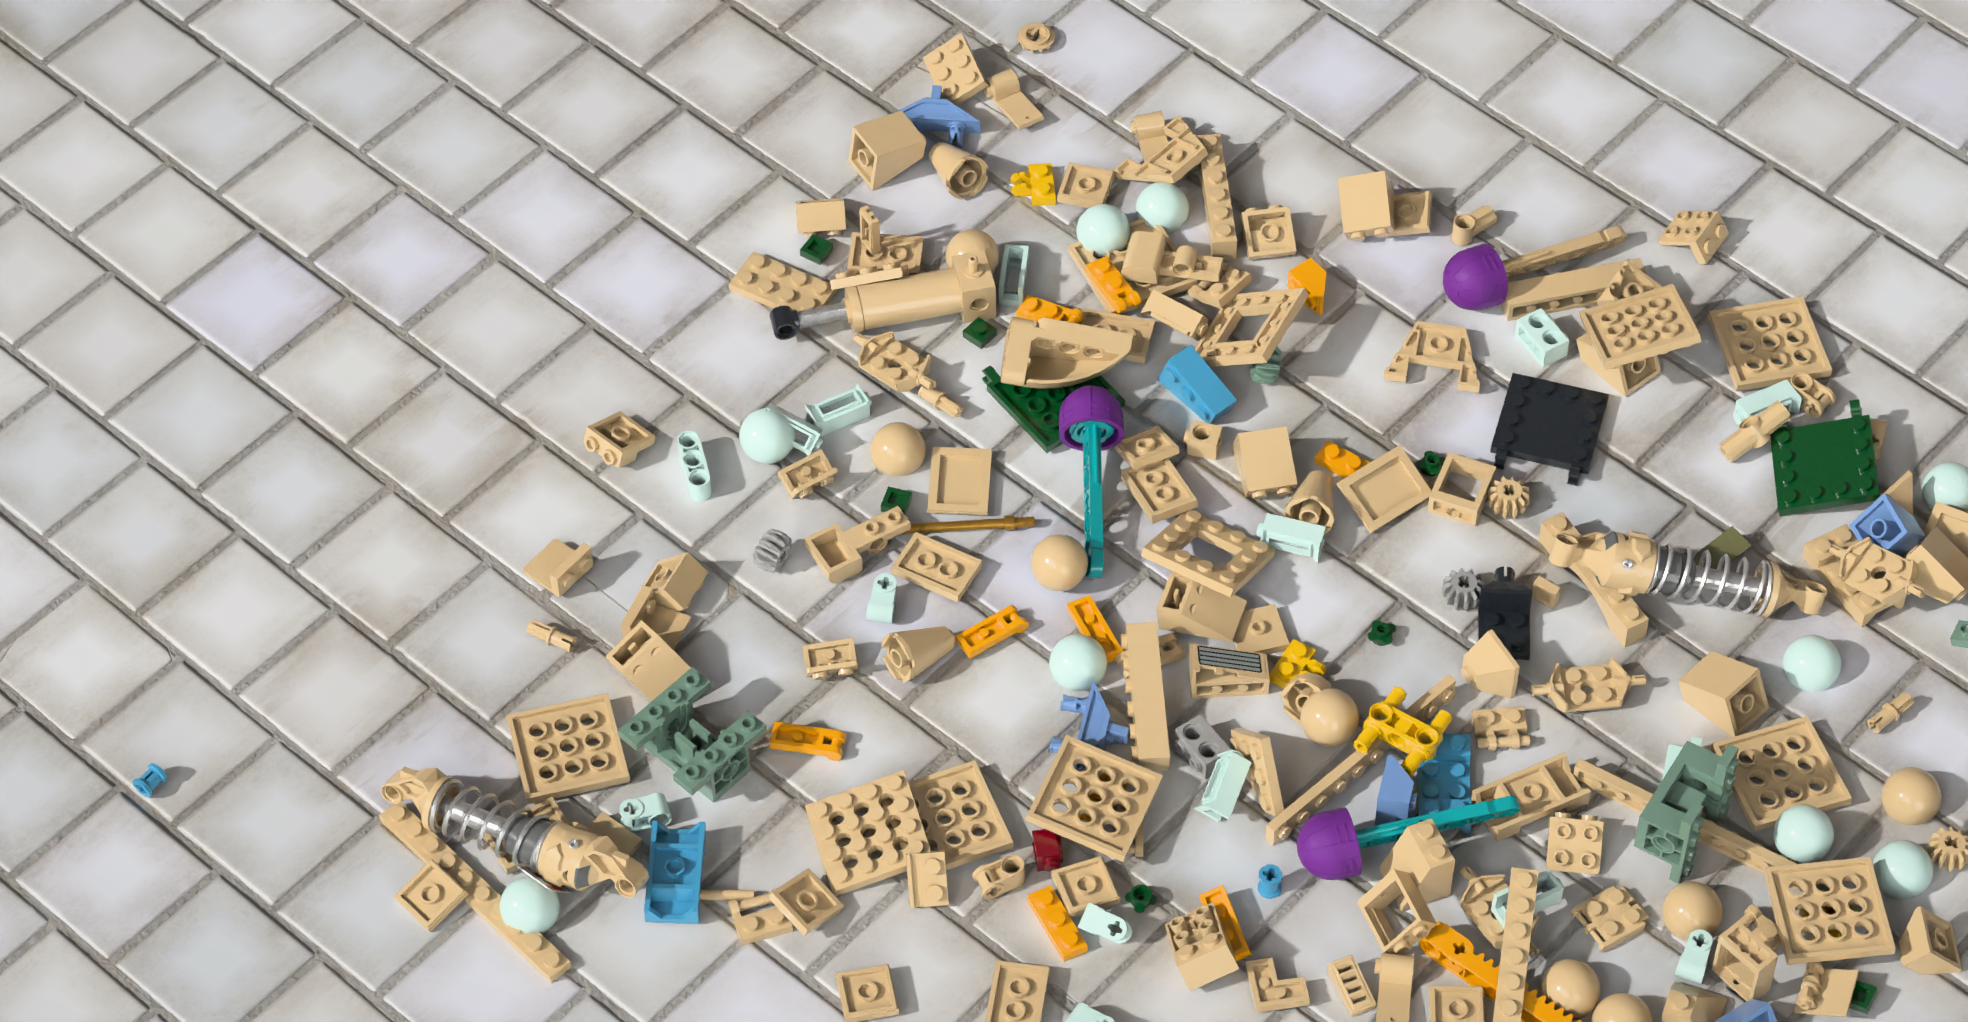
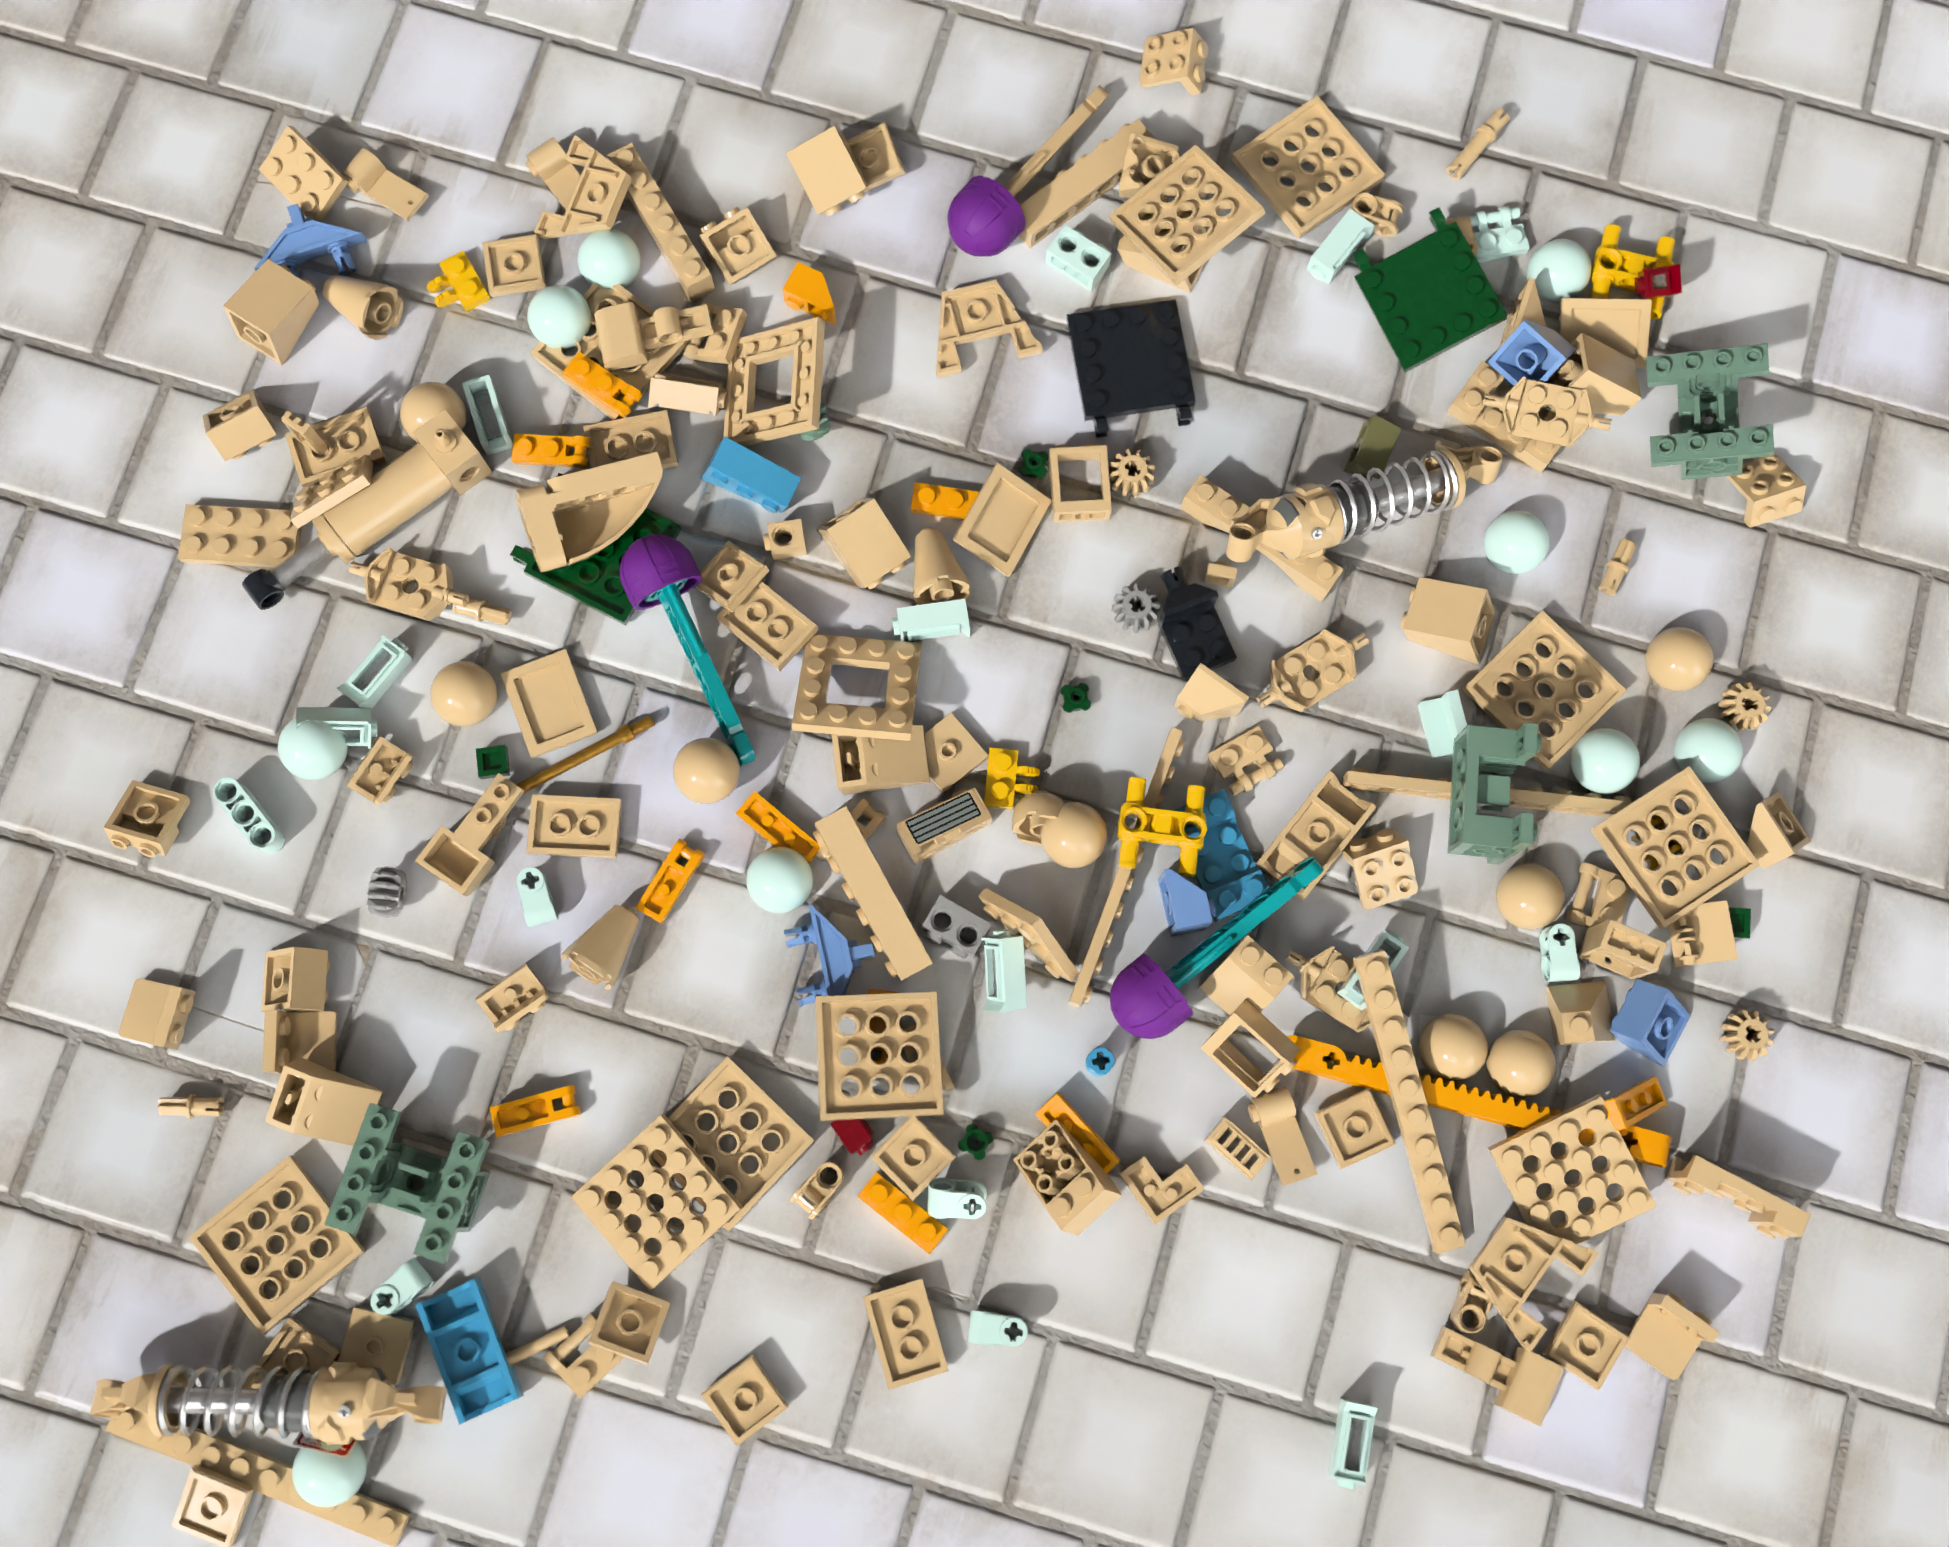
camera: 30 degrees left, 25 degrees up
(816, 249) = (255, 472): dark green plate -> none
(927, 879) = (745, 1233): tan plate -> none
(979, 332) = (484, 502): dark green plate -> none
(1030, 31) = (362, 88): tan gear -> none
(1469, 225) = (944, 144): tan piece -> none
(1611, 916) = (1453, 938): tan plate -> none
(1754, 431) = (1344, 286): tan piece -> none
(1909, 453) = (1502, 241): none -> light aqua plate
(1935, 373) = (1484, 136): none -> tan pin

